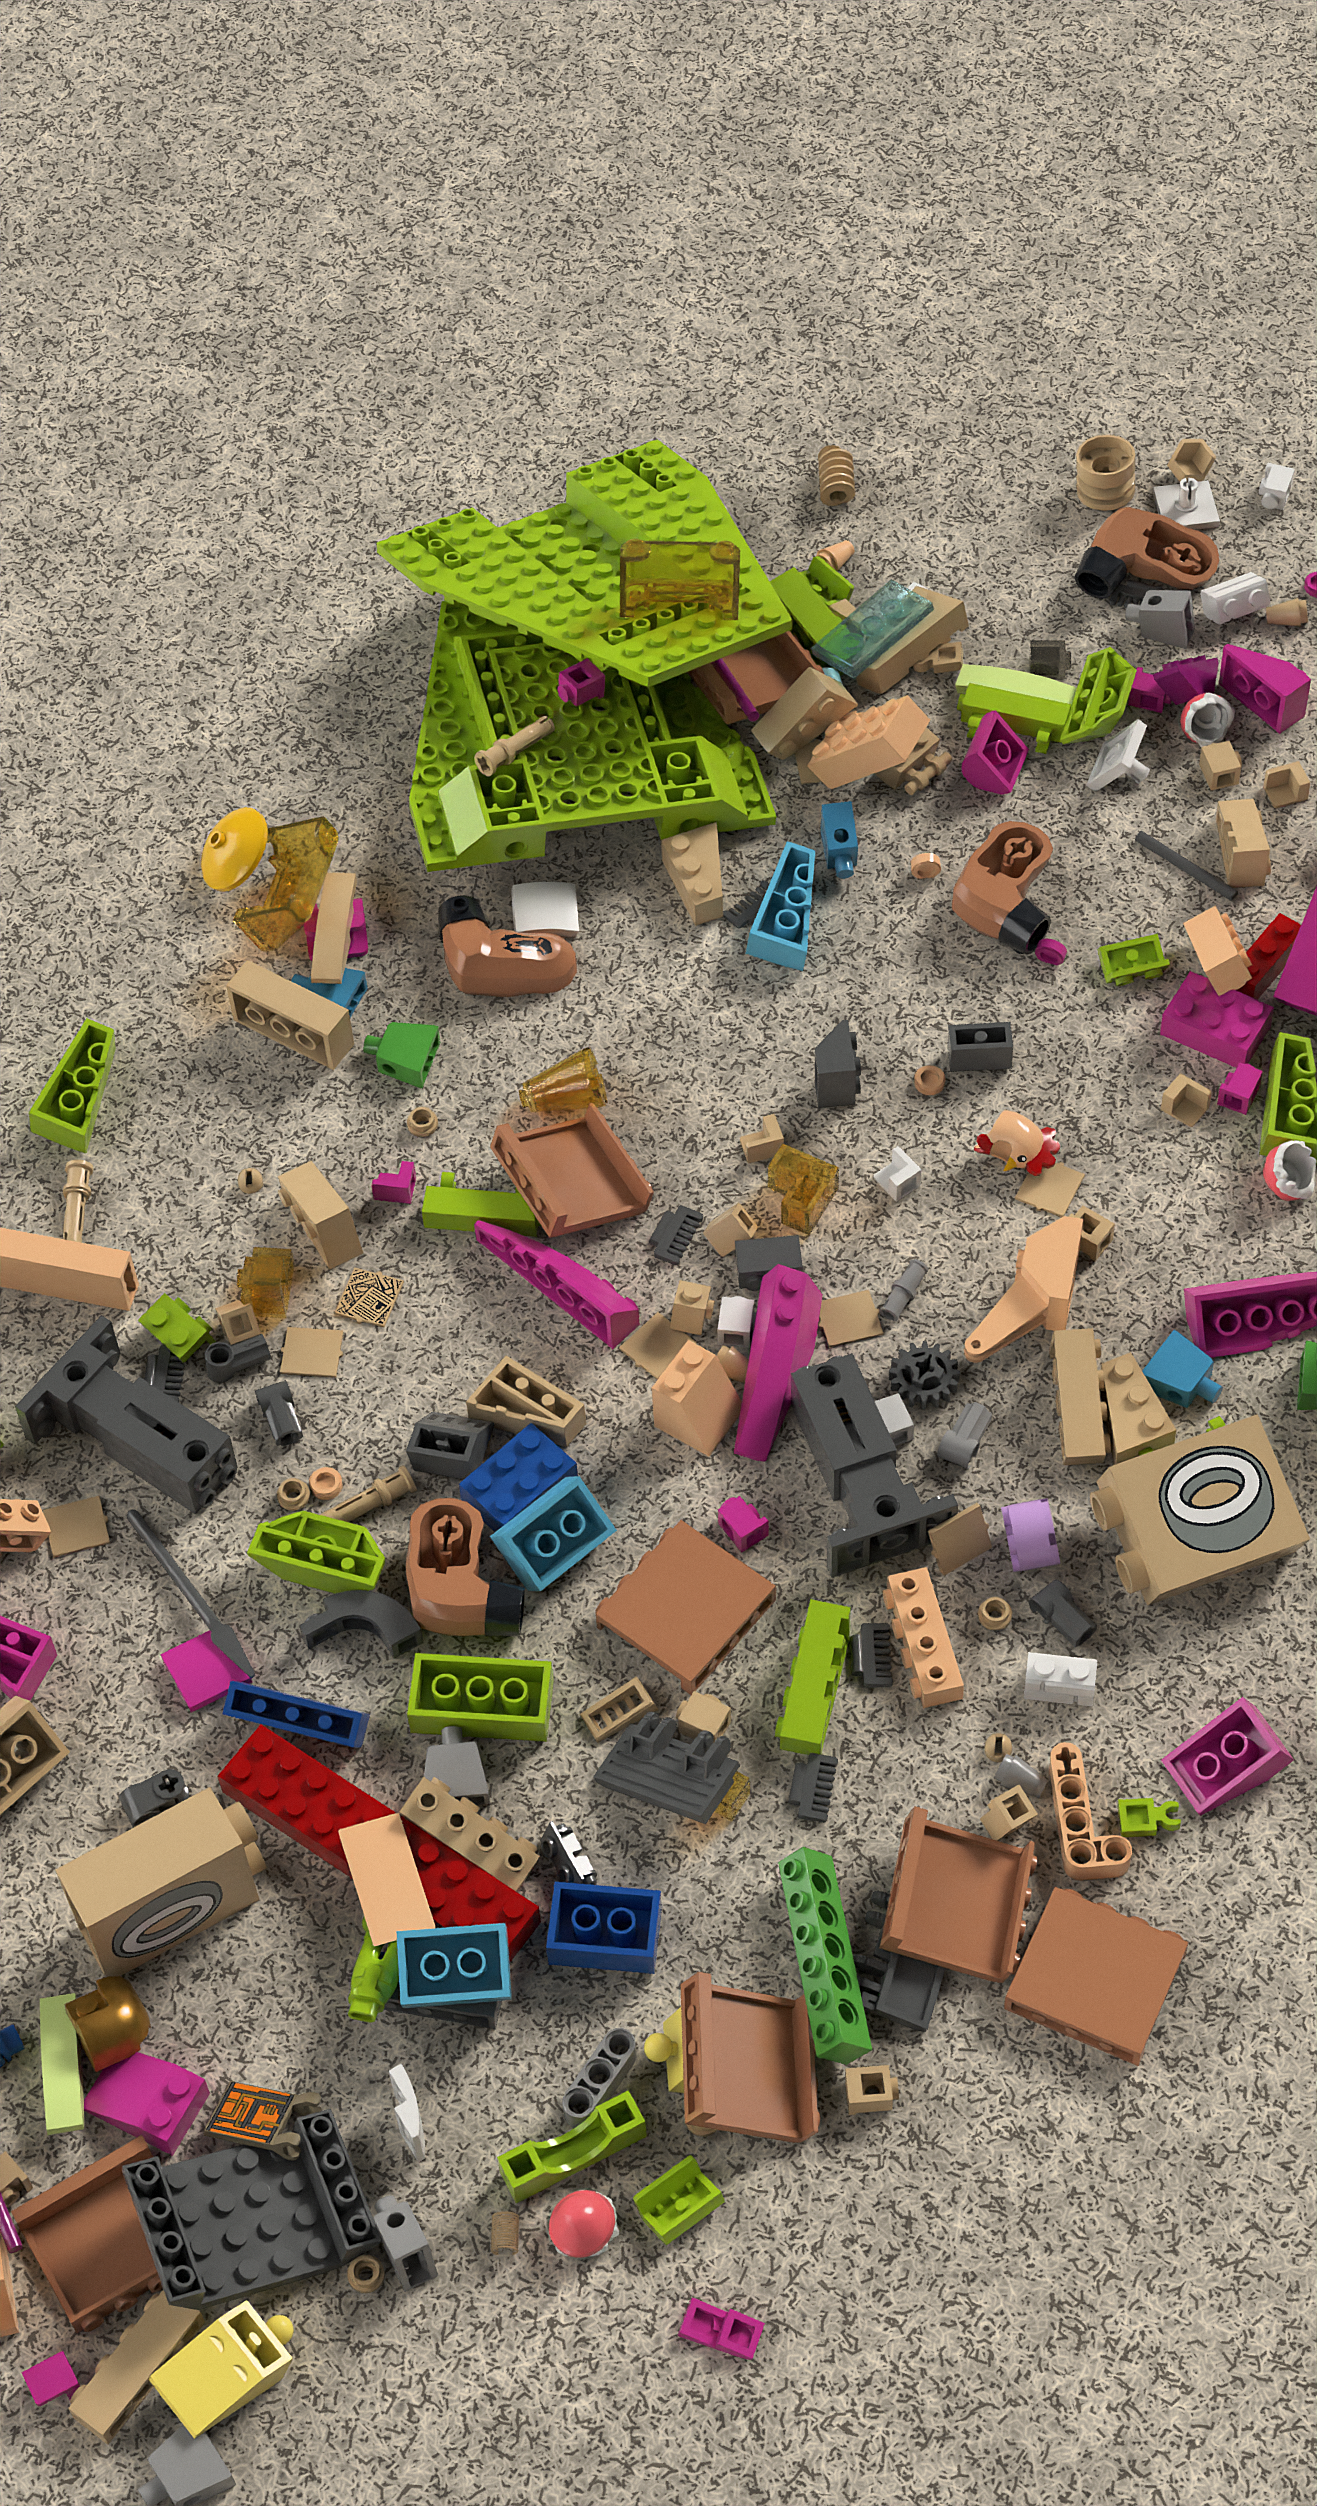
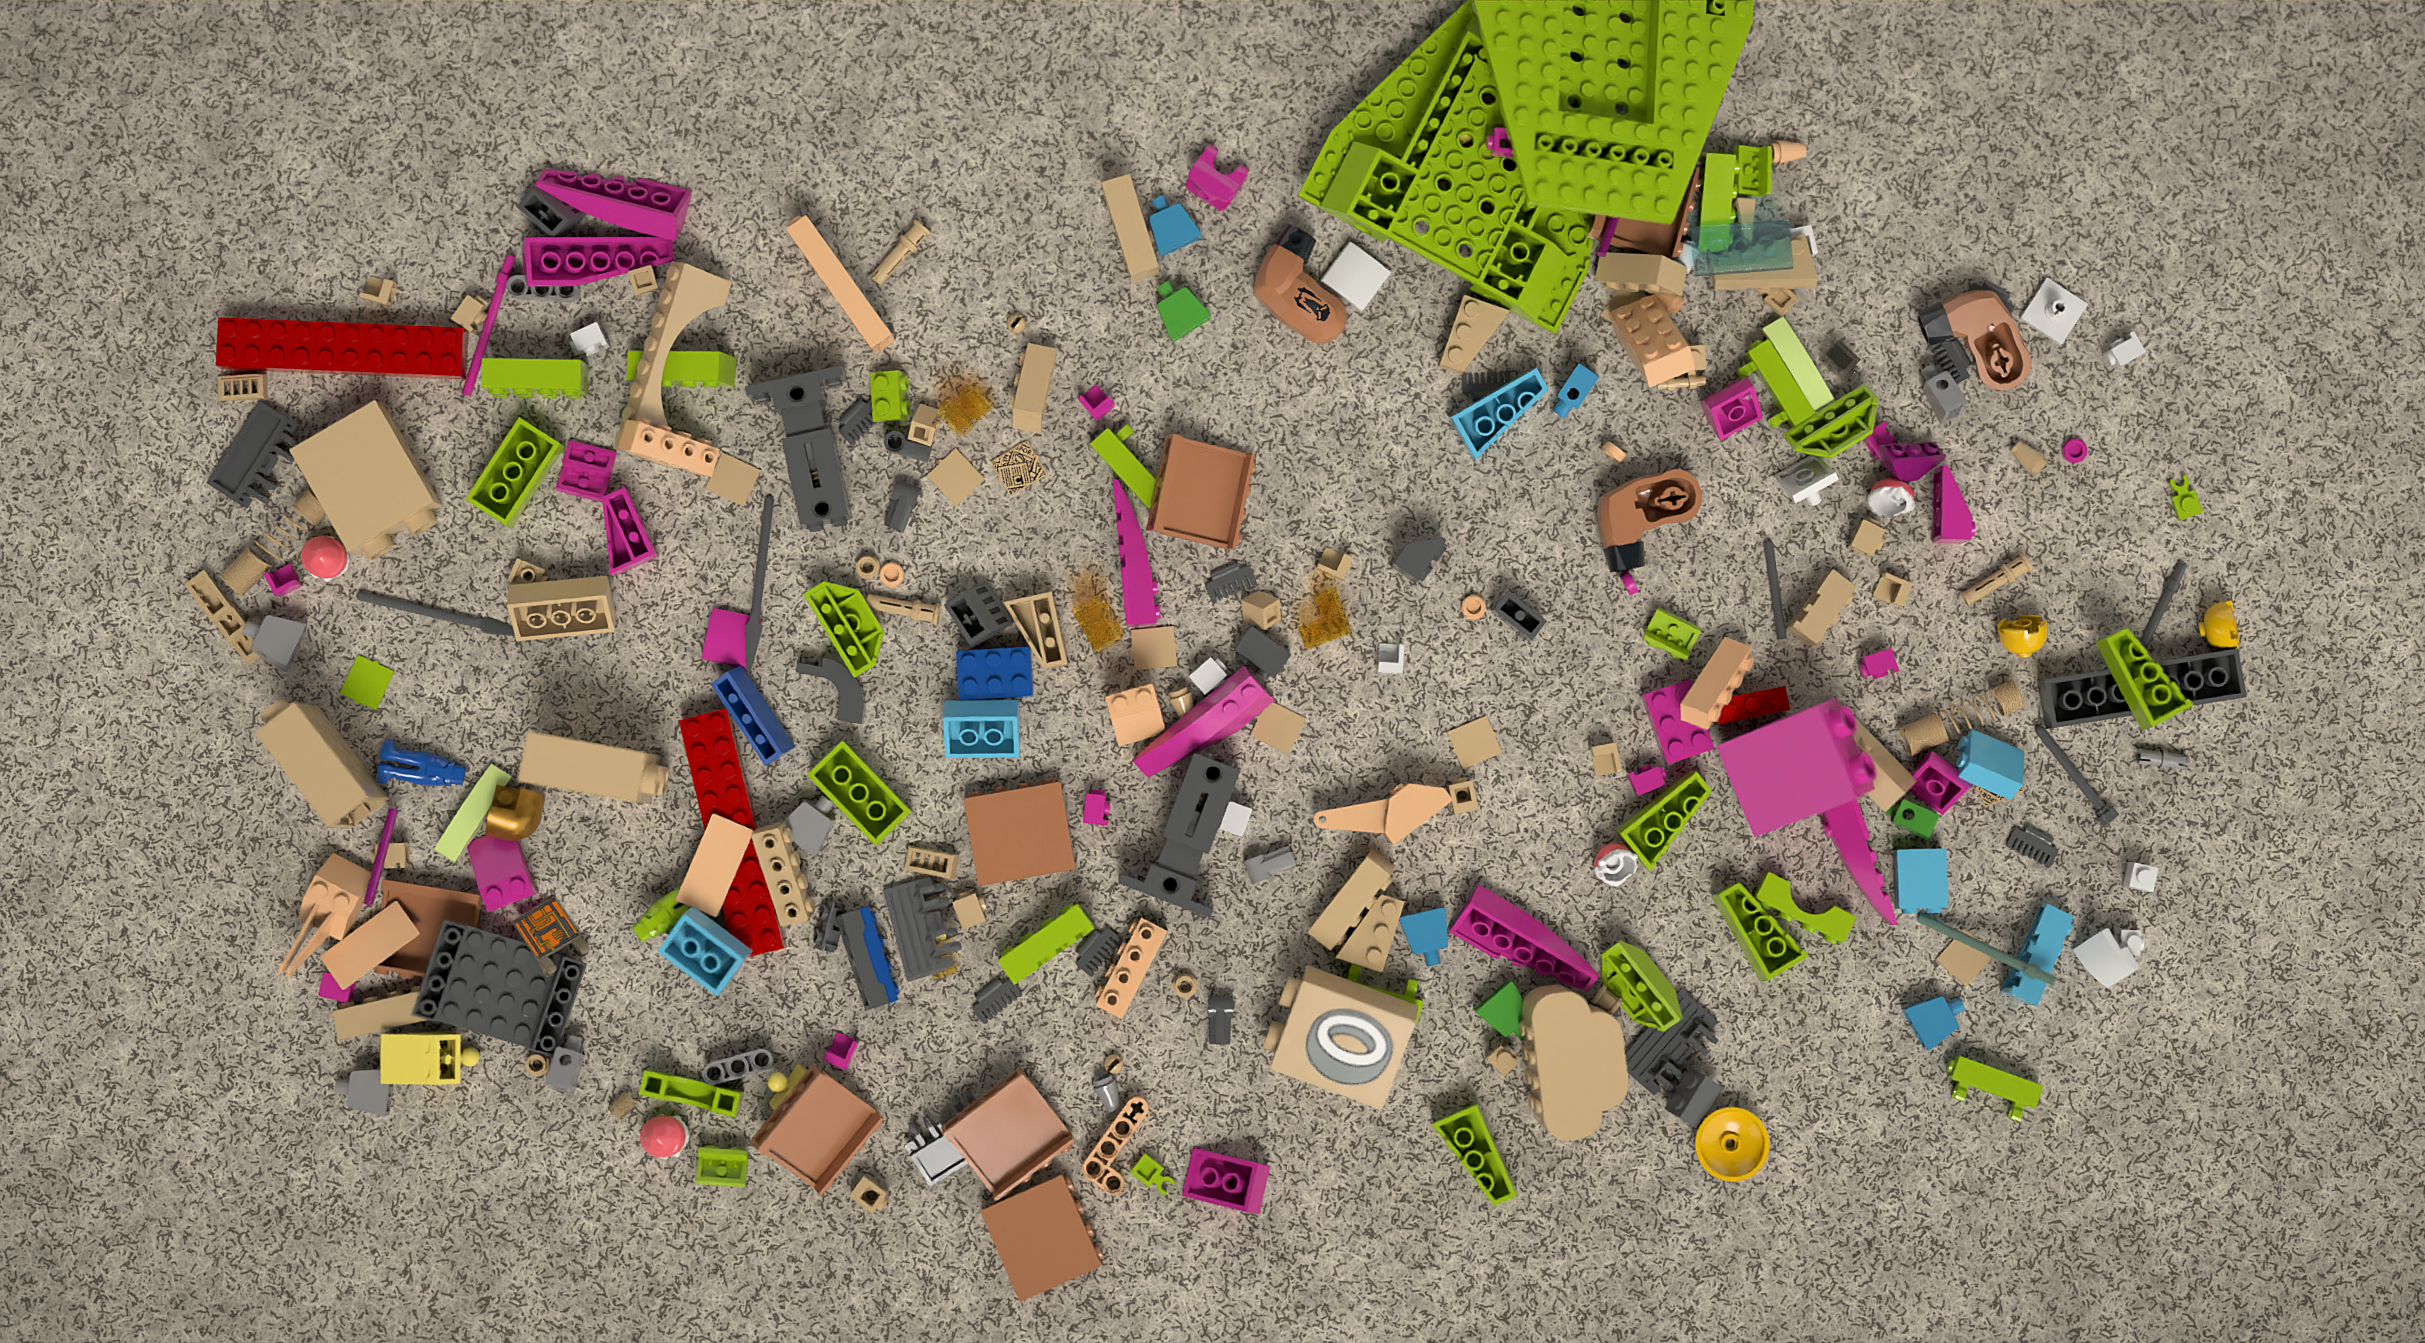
camera: 35 degrees right, 30 degrees up
(54, 2300) = (369, 945): none -> light nougat sticker
(74, 1092) = (962, 169): lime wedge -> none
(152, 1797) = (636, 696): dark grey piece -> none
(234, 849) = (1200, 65): yellow dish -> none
(301, 864) = (1209, 133): clear yellow windscreen -> none
(333, 928) = (1204, 190): tan slope -> none
(408, 2112) = (619, 1010): white slope -> none
(422, 1114) = (1150, 363): tan plate -> none
(445, 1575) = (903, 700): nougat piece -> none
(505, 750) = (1409, 159): tan pin -> none
(566, 1085) = (1253, 426): clear yellow cone -> none
(575, 1359) = (1097, 624): none -> clear yellow brick
(604, 1927) = (810, 987): blue brick -> none
(639, 1851) = (867, 958): none -> dark grey piece
(679, 574) = (1643, 154): clear yellow windscreen -> none
(691, 1307) = (1189, 646): tan brick -> none
(700, 1962) = (841, 1051): none -> dark pink panel
(720, 2329) = (688, 1248): dark pink slope -> none
(824, 1956) = (909, 1105): bright green brick -> none
(836, 475) = (1848, 84): tan piece -> none
(904, 1290) = (1323, 738): light grey pin -> none
(933, 1384) = (1277, 794): dark grey gear -> none
(960, 1539) = (1203, 928): tan piece -> none
(1008, 1813) = (1077, 1108): tan brick -> none
(1019, 1143) = (1480, 704): light nougat piece -> none
(1030, 1535) = (1243, 962): lavender brick -> none
(1060, 1679) = (1180, 1058): white brick -> none
(1105, 472) = (2029, 232): tan wheel -> none
(1191, 460) = (2089, 282): tan panel -> none
(1235, 598) = (2004, 419): white brick -> none

